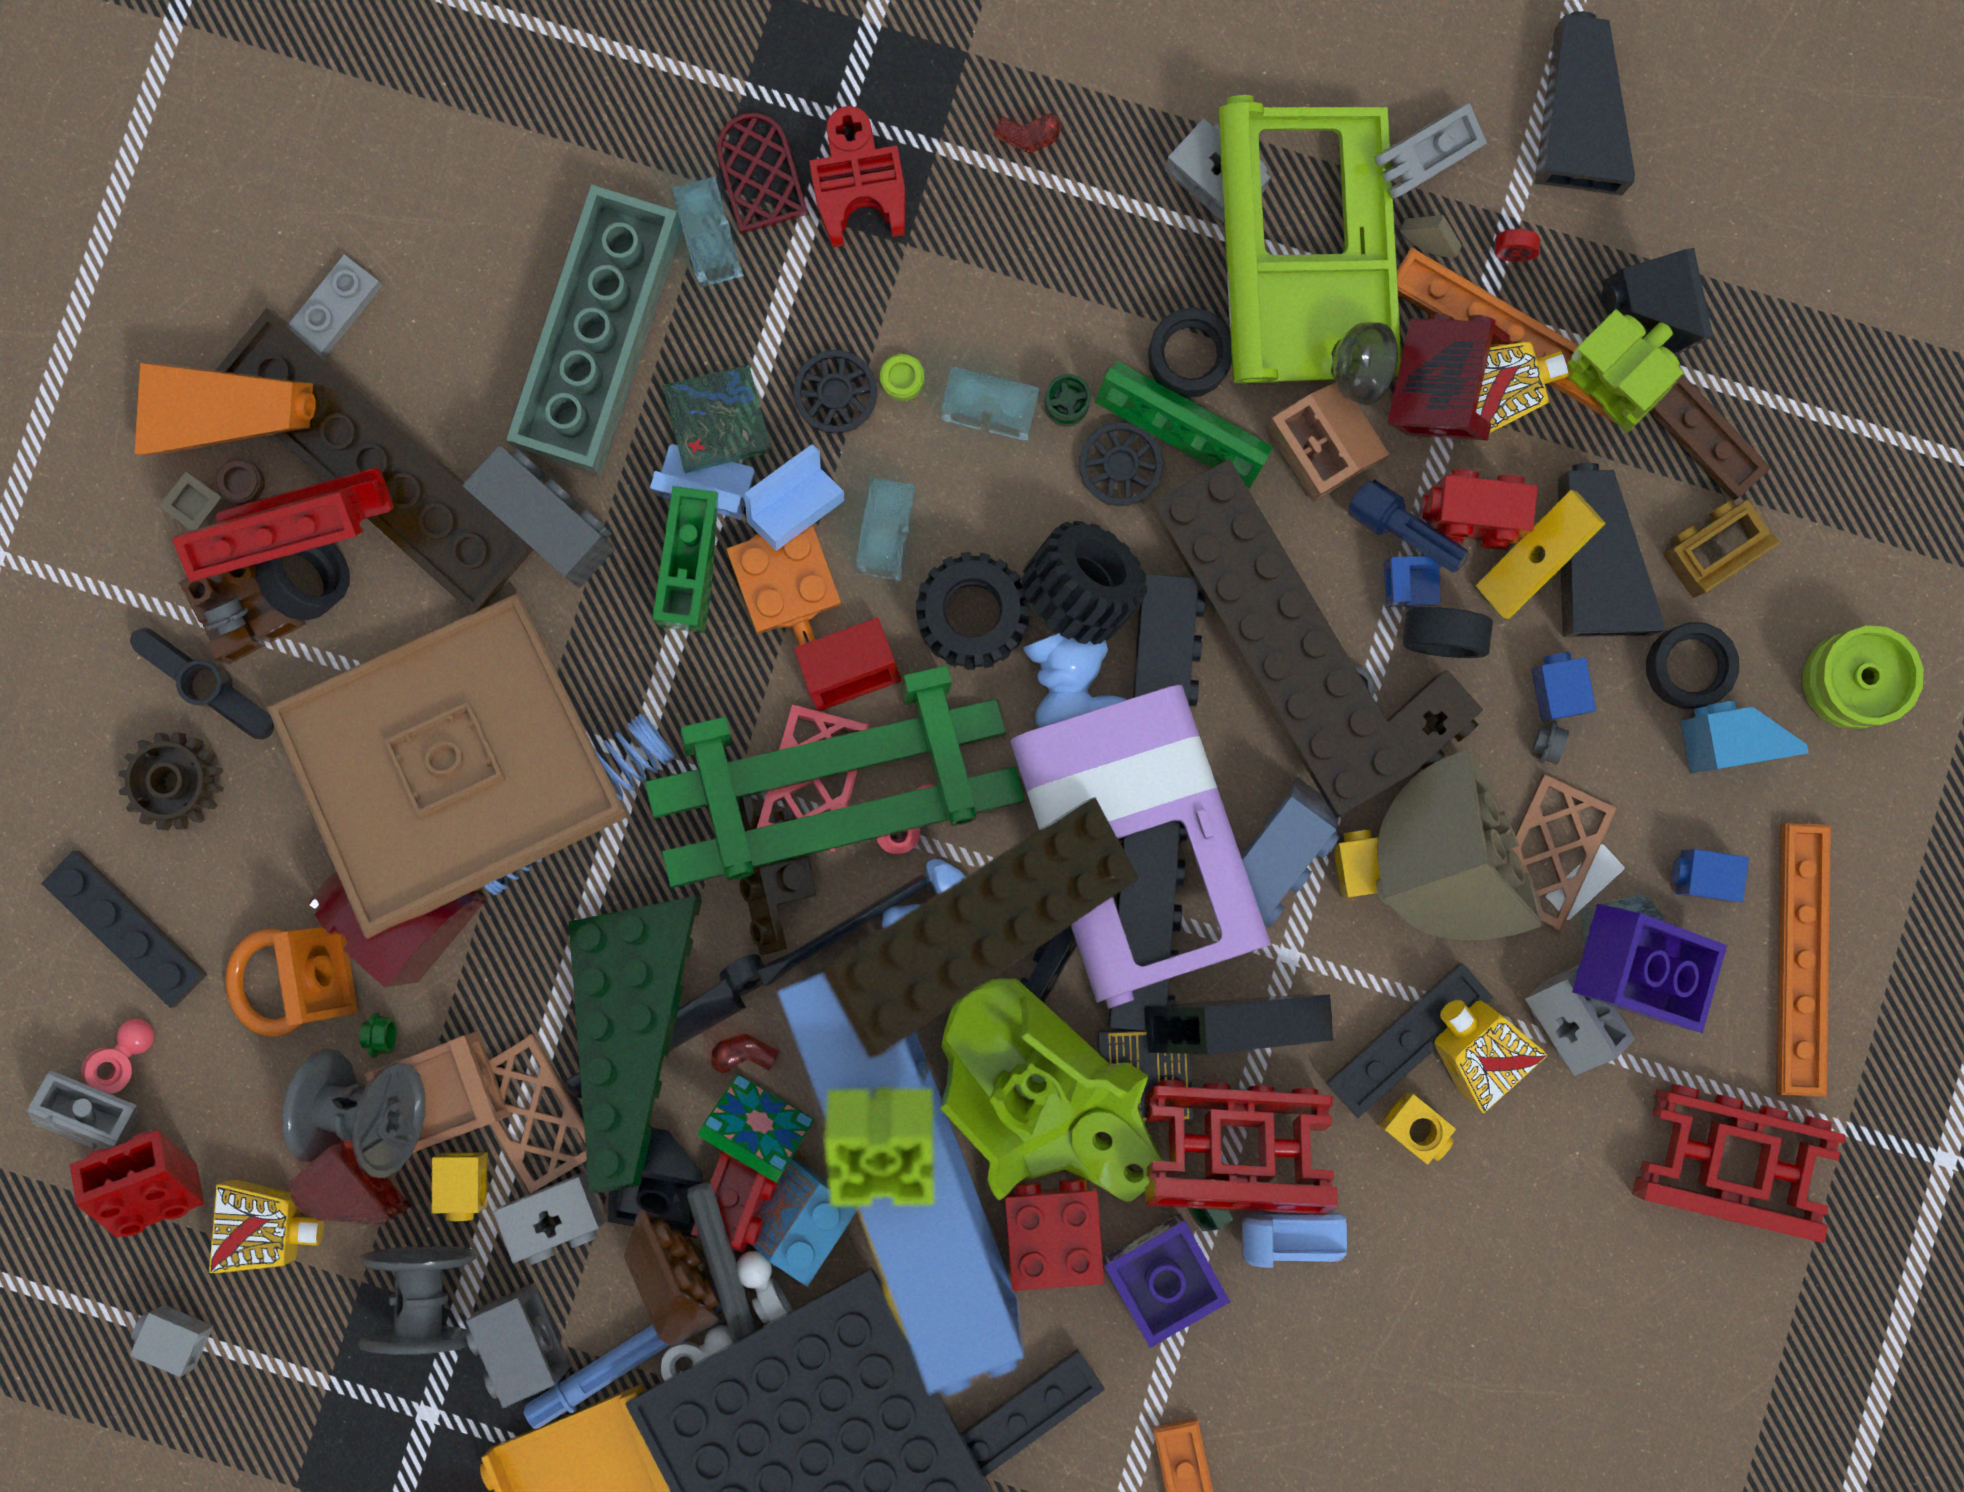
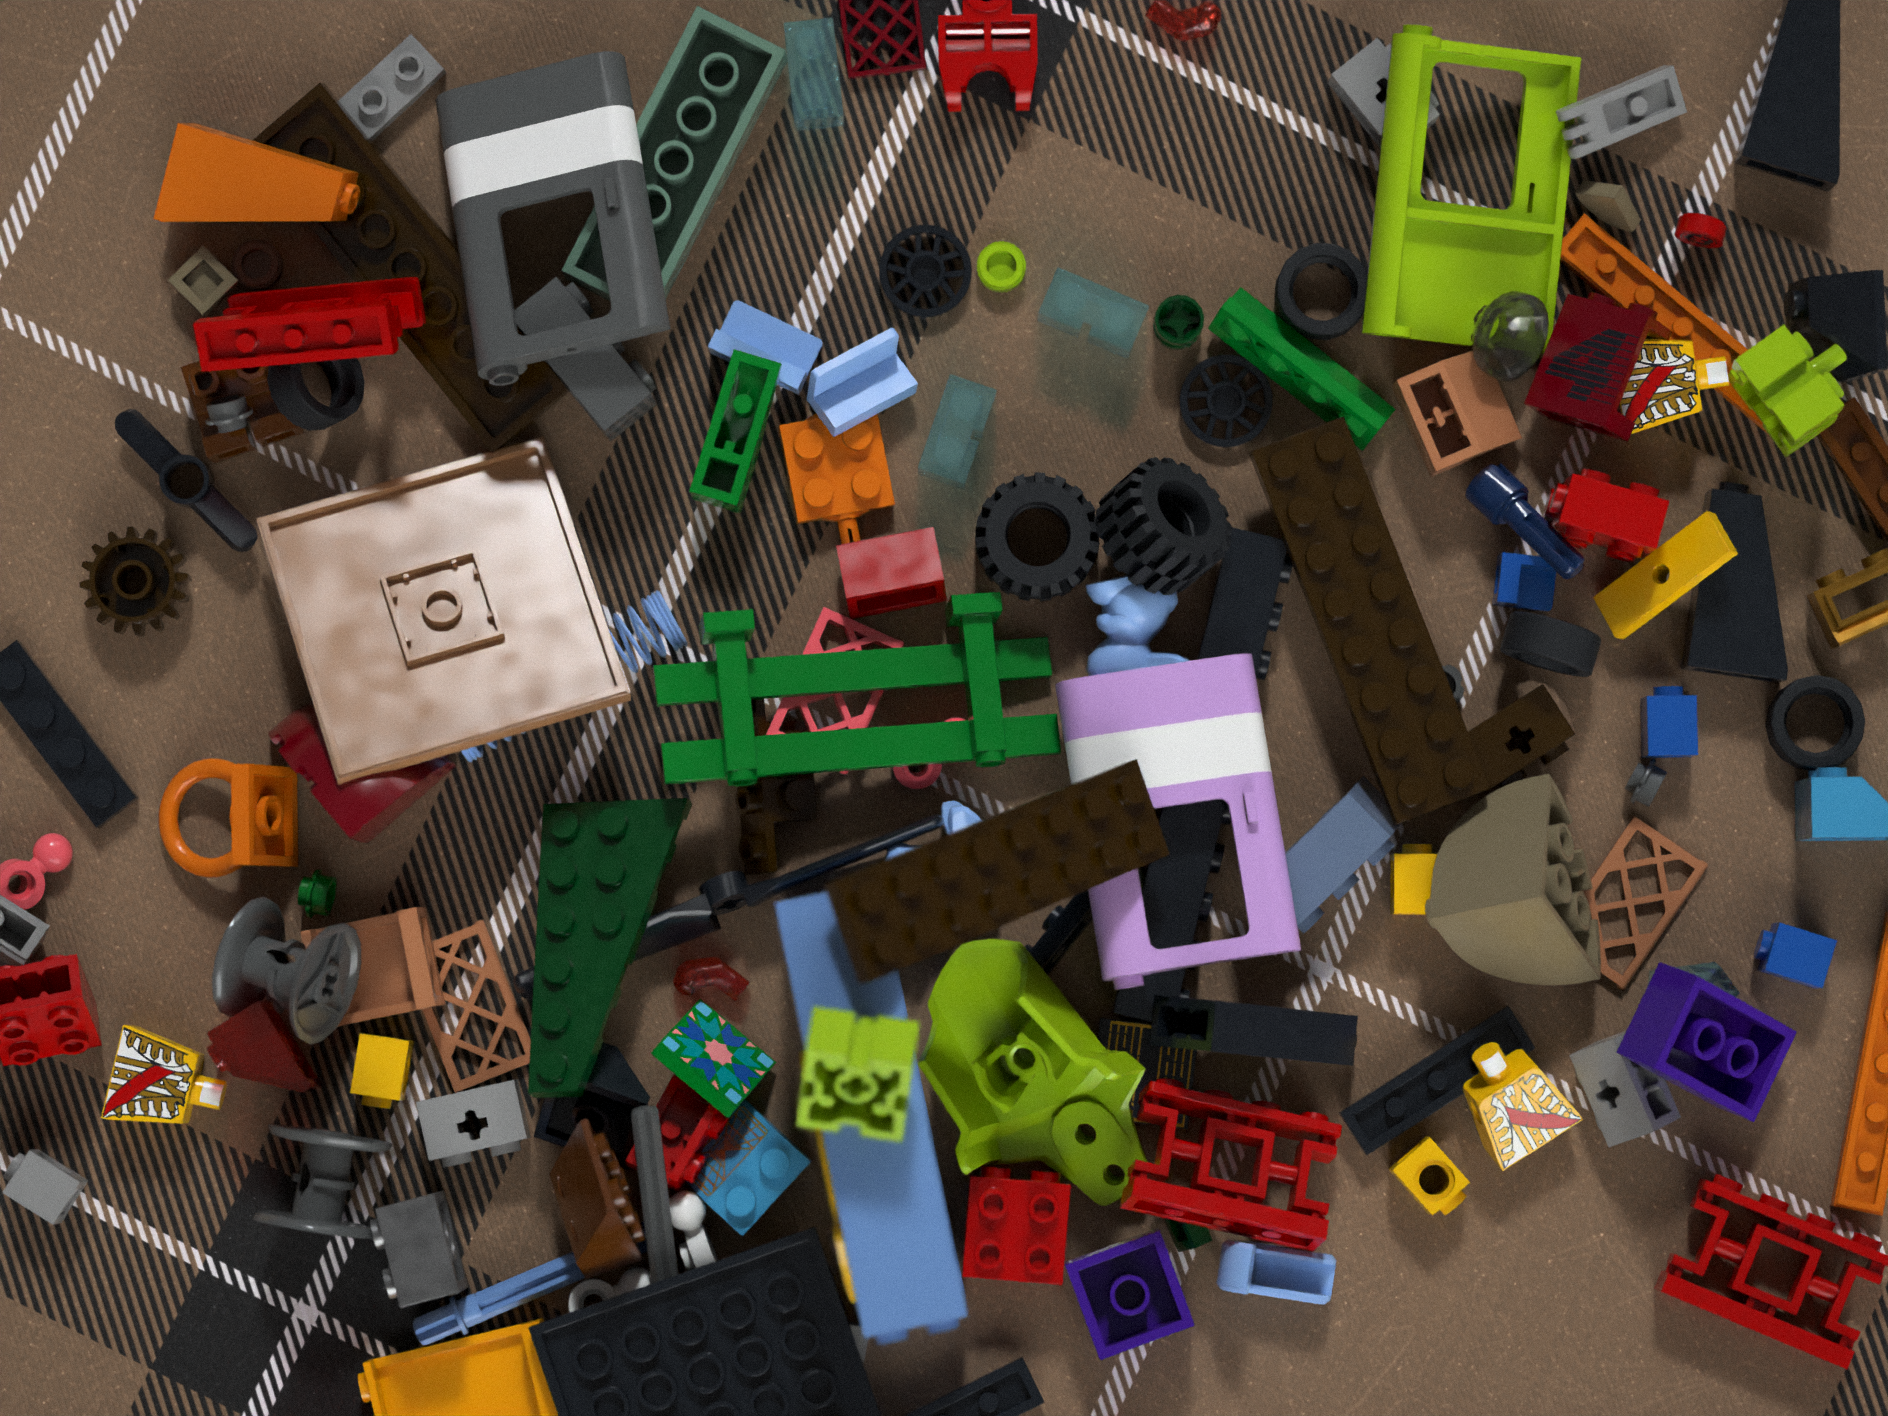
camera: 10 degrees right, 0 degrees up
(465, 328) = (534, 142): none -> dark grey piece
(717, 418) = (791, 280): tile -> none
(1602, 871) = (1679, 934): white sticker -> none

